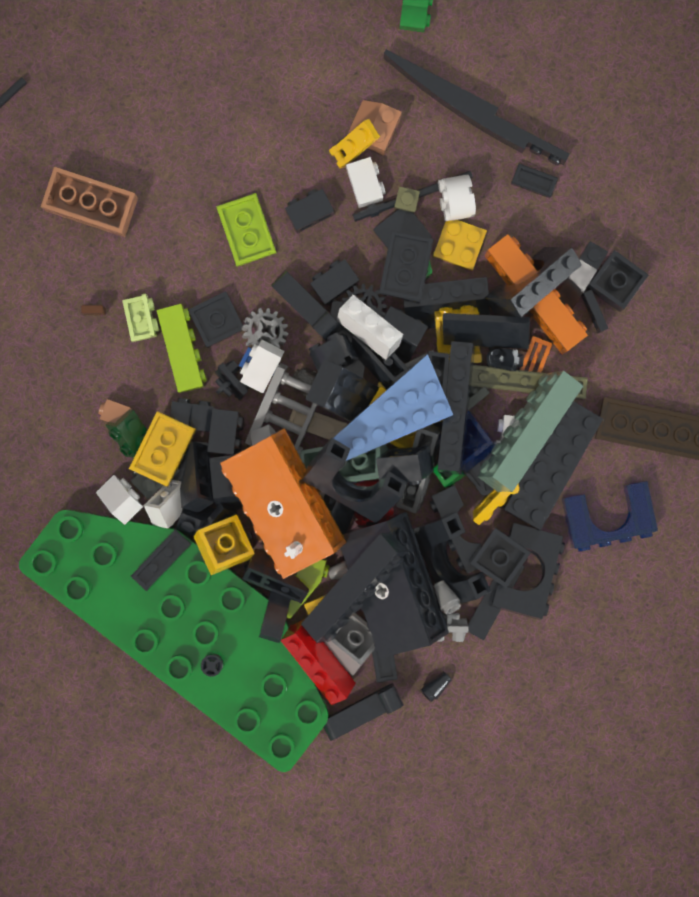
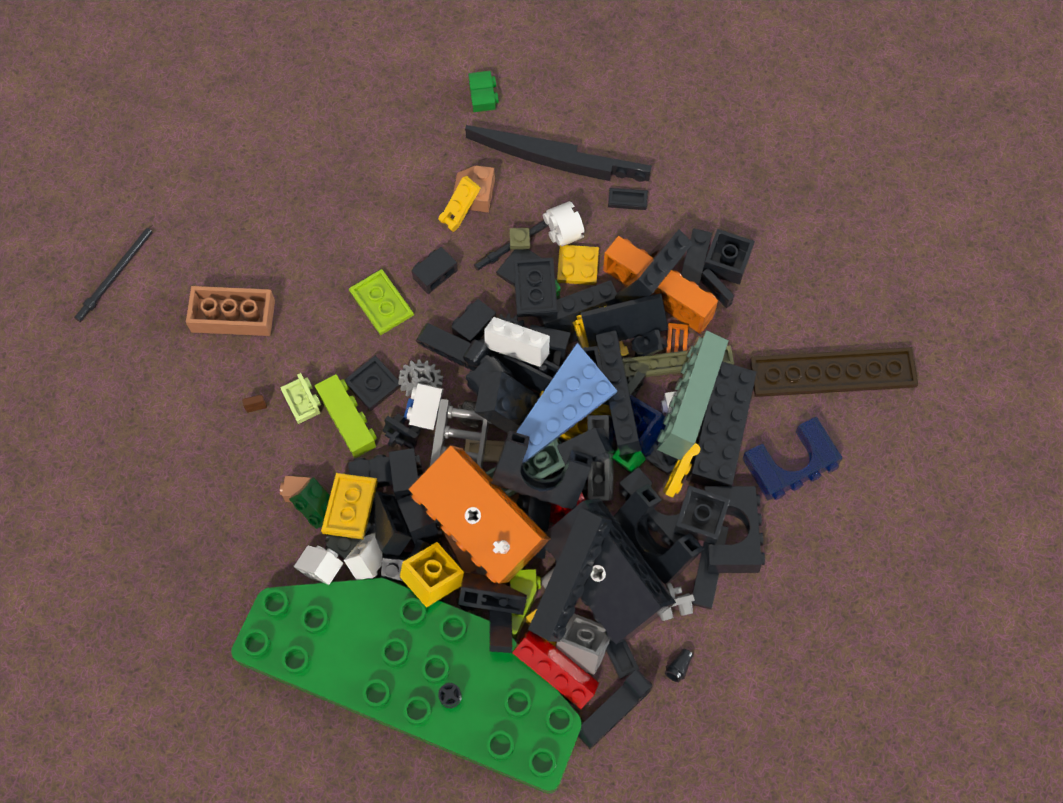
camera: 15 degrees left, 20 degrees down
(161, 560) = (373, 609): black tile -> none
(365, 182) = (478, 235): white brick -> none
(446, 597) = (663, 569): light grey cone -> none

